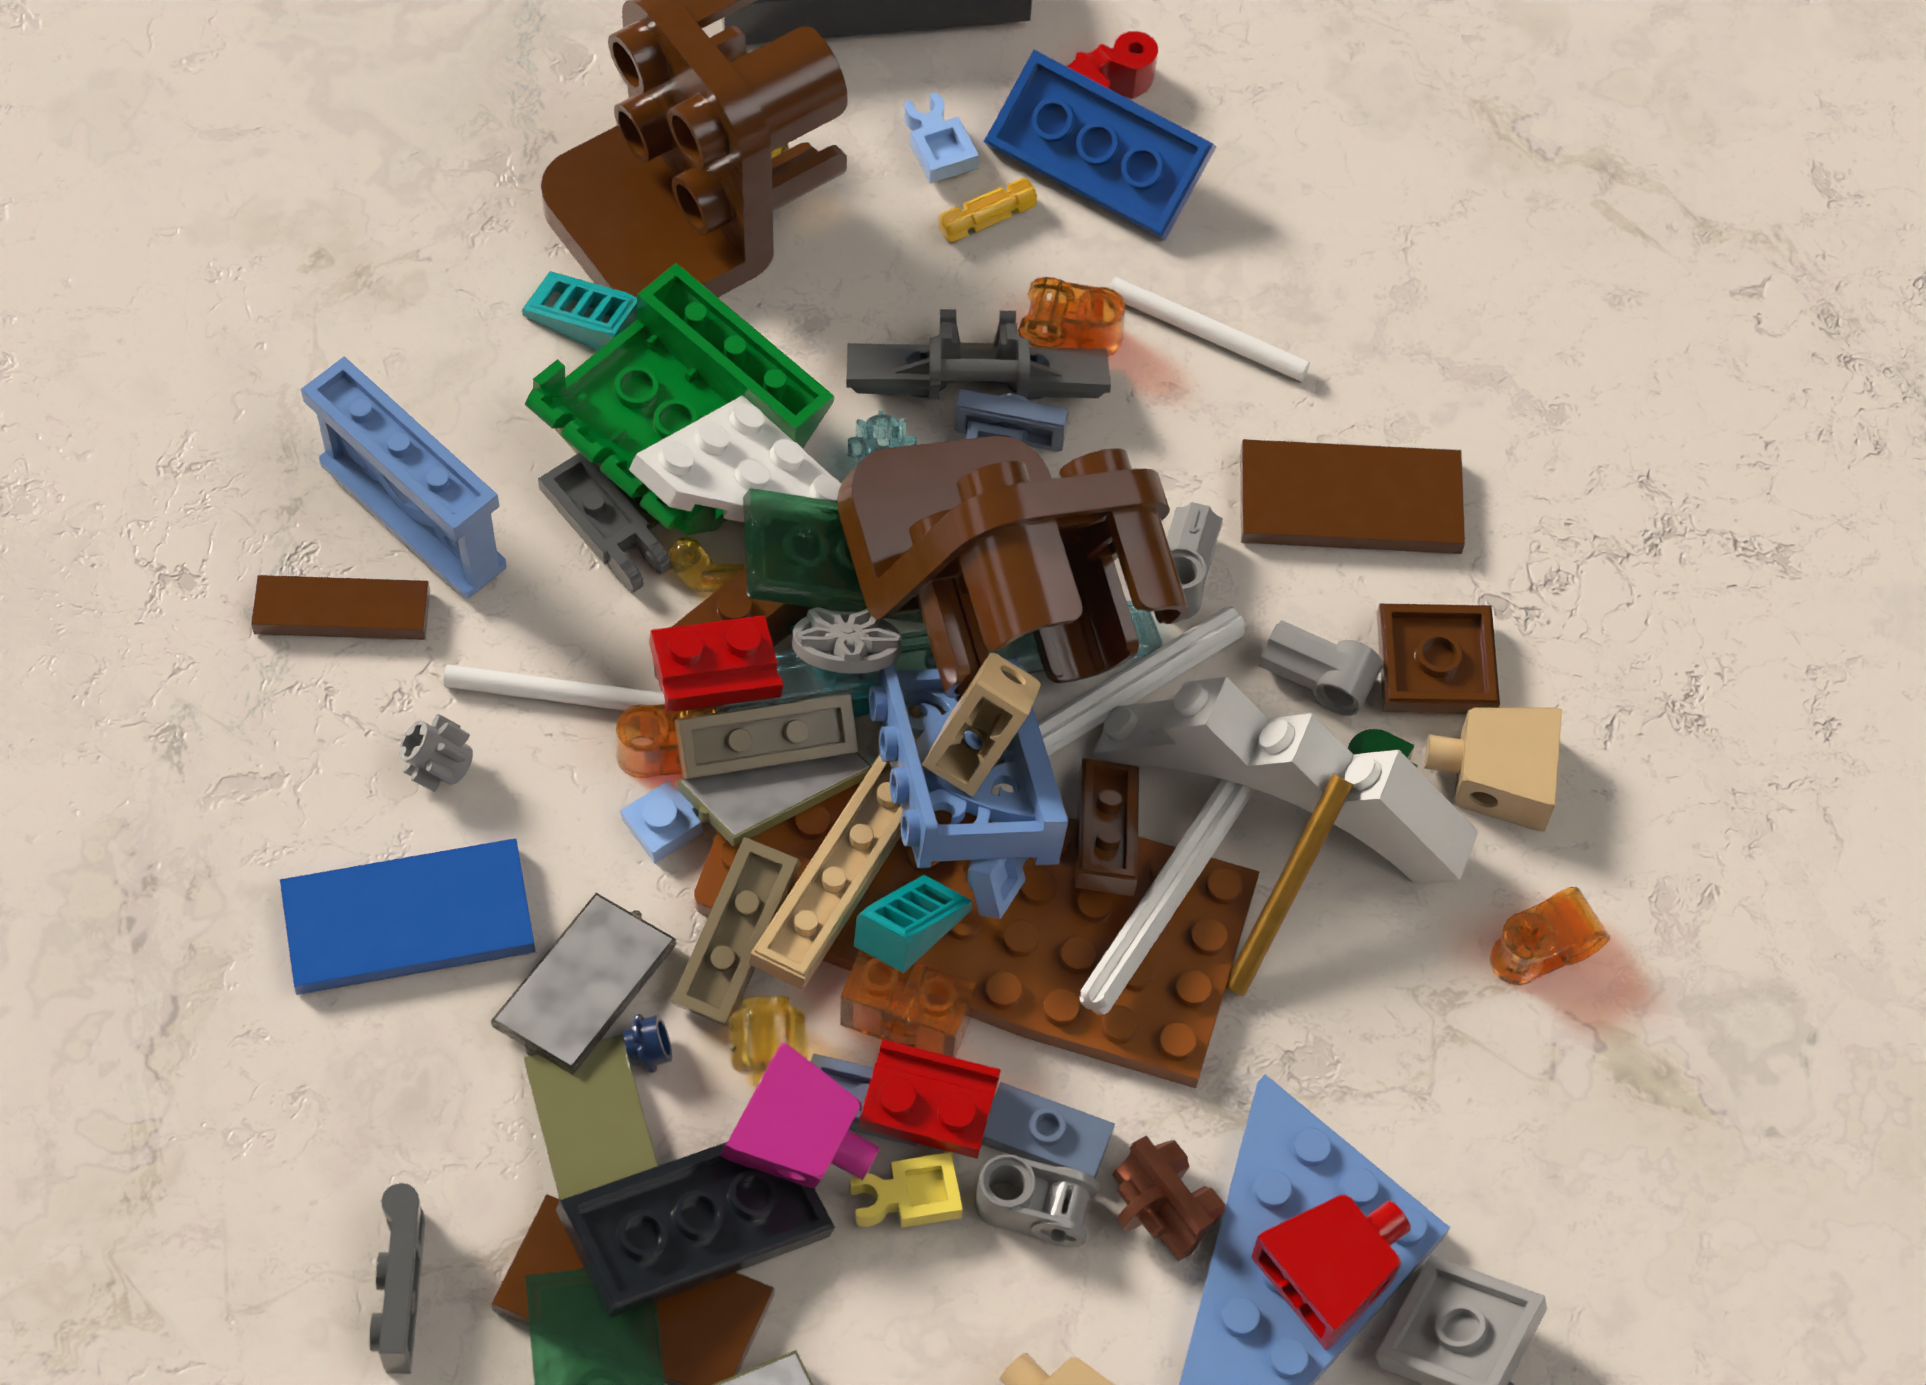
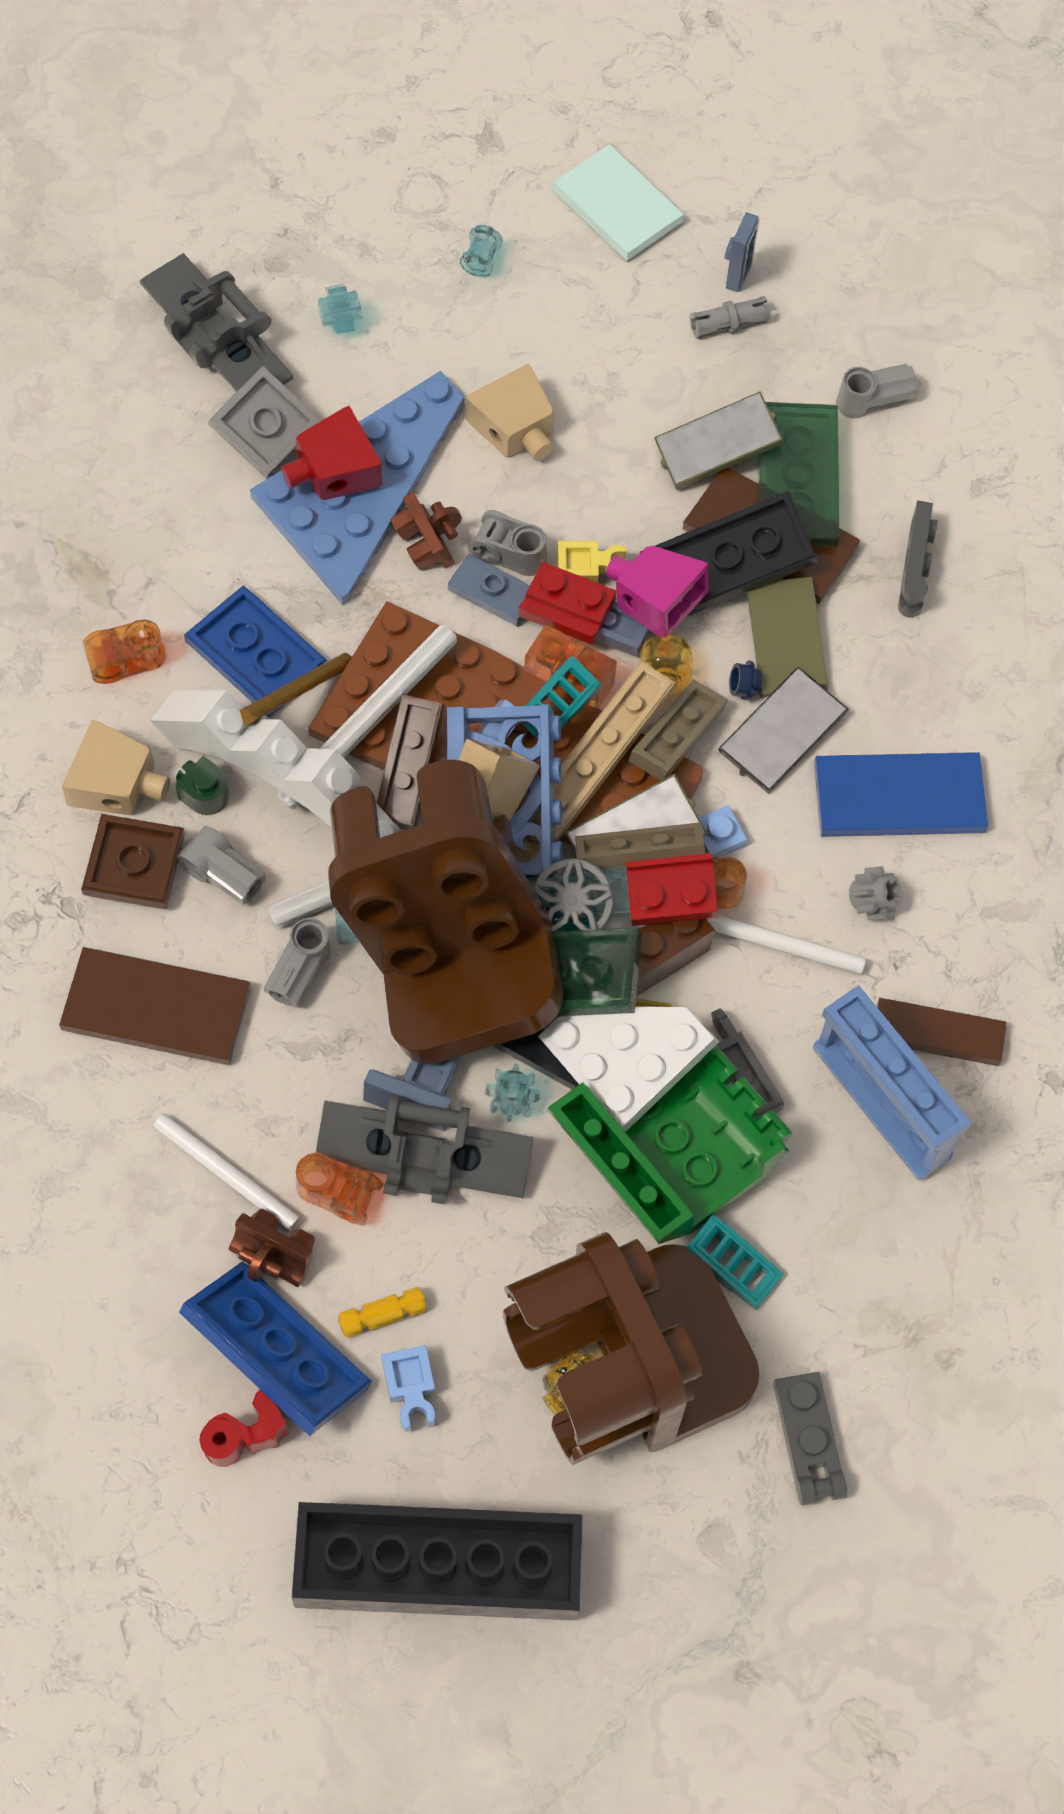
camera: 170 degrees left, 5 degrees up
(477, 156) = (809, 1437): none -> dark grey plate
(1153, 250) = (270, 1251): none -> copper hips
(1365, 983) = (252, 646): none -> blue tile

